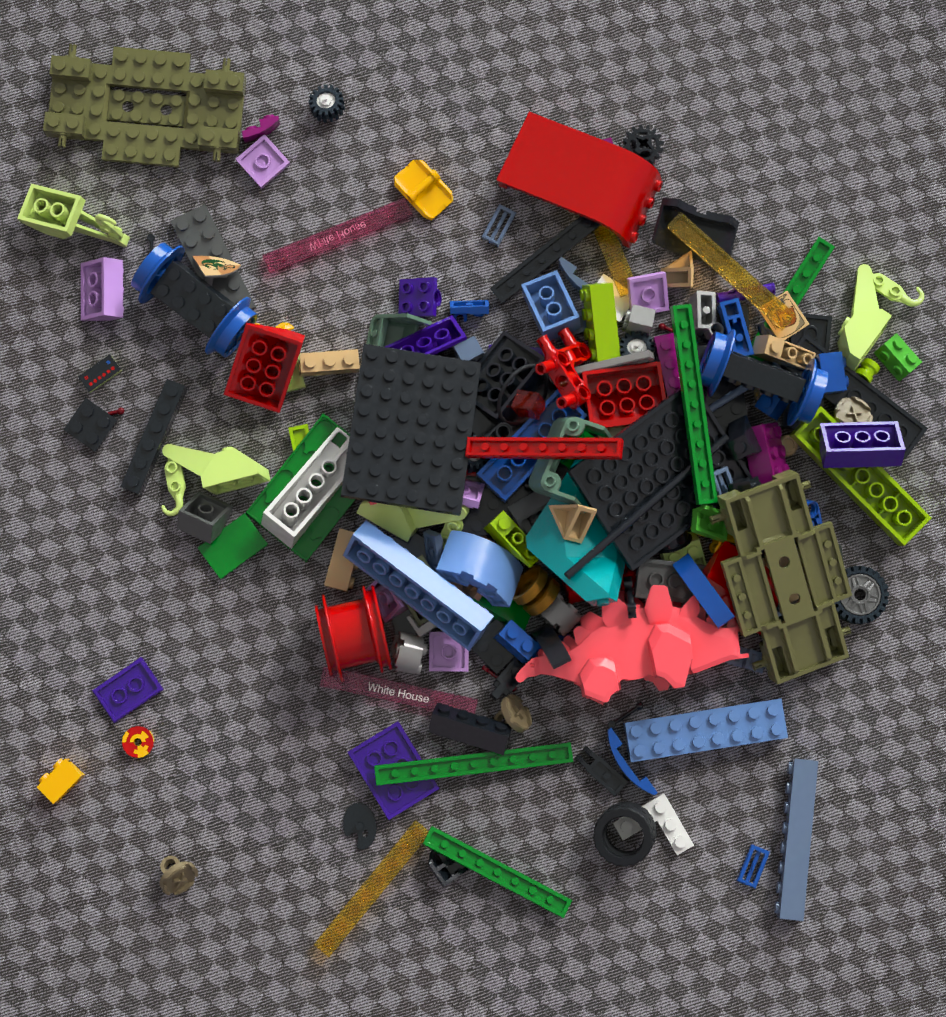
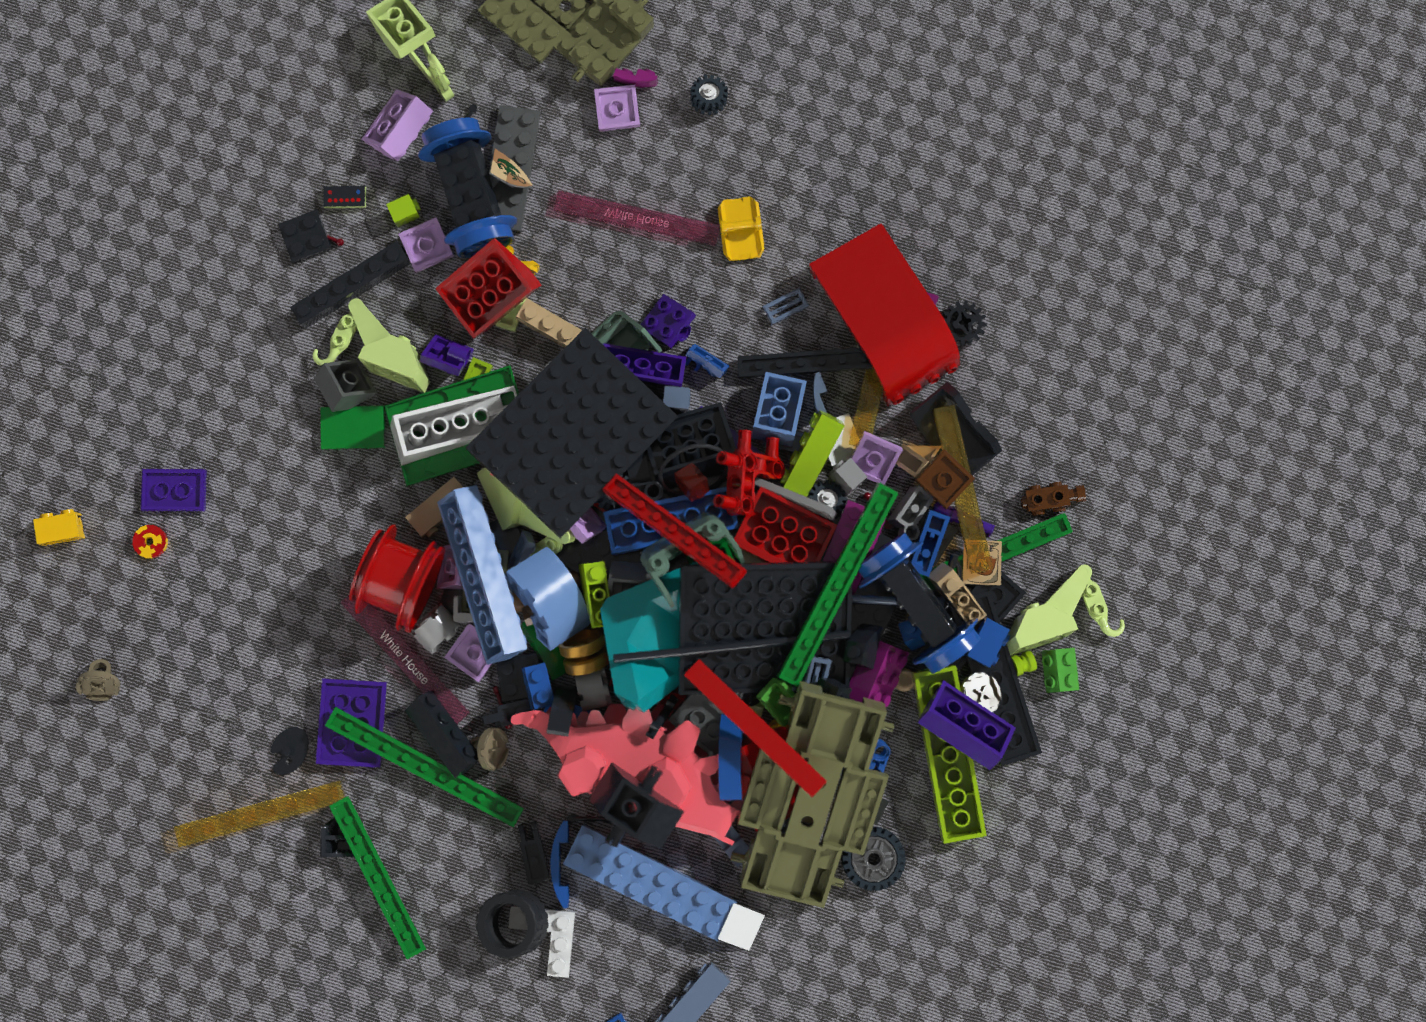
camera: 40 degrees right, 0 degrees up
(154, 352) = (404, 210): none -> lime brick
(190, 367) = (425, 245): none -> lavender plate
(267, 440) = (446, 355): none -> dark purple plate
(573, 520) = (655, 613): tan slope -> none
(680, 680) = (654, 813): none -> black slope
(709, 554) = (755, 728): none -> red tile
(713, 272) = (944, 479): none -> reddish brown plate
(797, 715) = (741, 927): none -> white sticker
(799, 234) = (1048, 498): none -> reddish brown brick

